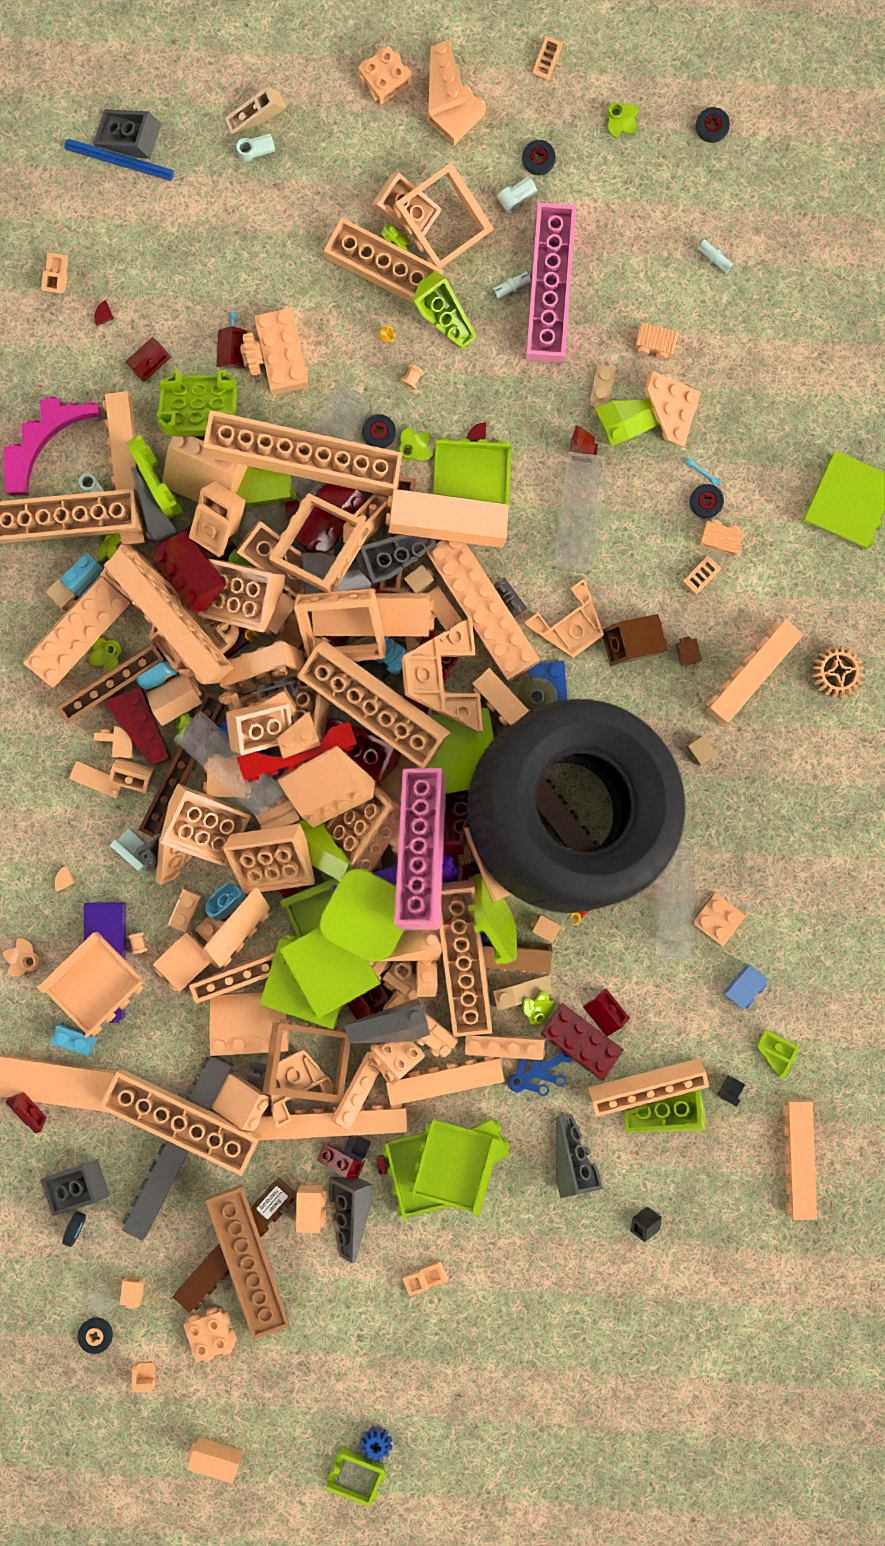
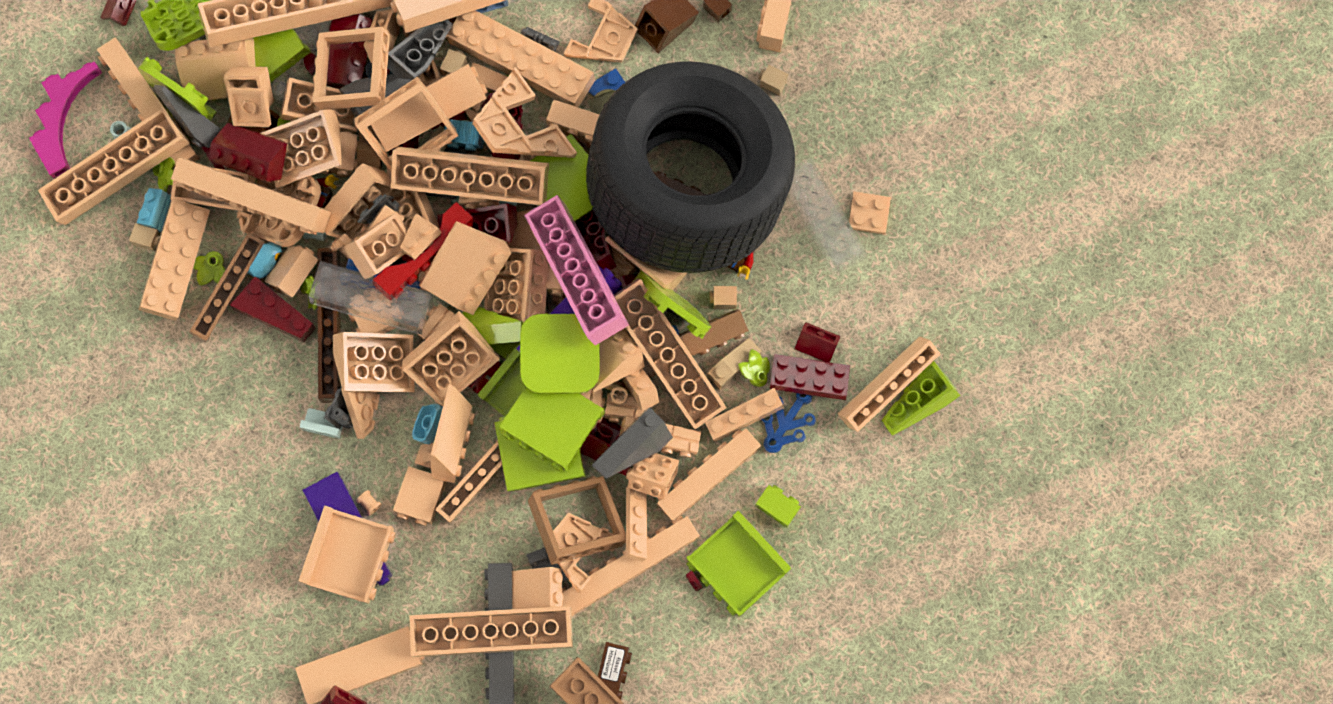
camera: 35 degrees left, 10 degrees down
(18, 958) = (268, 573): light nougat plate -> none
(63, 879) = (273, 483): light nougat tile -> none
(73, 1040) = (356, 617): medium azure brick -> none
(94, 779) = (257, 380): light nougat hinge -> none
(122, 744) = (260, 332): light nougat brick -> none
(131, 775) = (287, 357): light nougat brick -> none
(185, 910) = (397, 449): light nougat brick -> none
(243, 1025) = (502, 522): light nougat slope -> none
(309, 1209) = (650, 650): light nougat brick -> none
(339, 1162) = (655, 596): dark red bracket -> none
(352, 1206) = (687, 632): dark grey wedge -> none
(356, 1147) = (662, 576): black panel -> none
(425, 1278) = (787, 661): light nougat slope -> none
(454, 1166) = (758, 541): lime panel -> none
(573, 1168) = (864, 492): dark grey wedge -> none
(646, 1224) = (955, 505): black panel -> none
(731, 1090) = (962, 350): black panel -> none
(745, 987) = (924, 255): medium blue brick -> none
(777, 1052) = (983, 296): lime wing -> none
(800, 1159) = (1055, 375): light nougat brick -> none

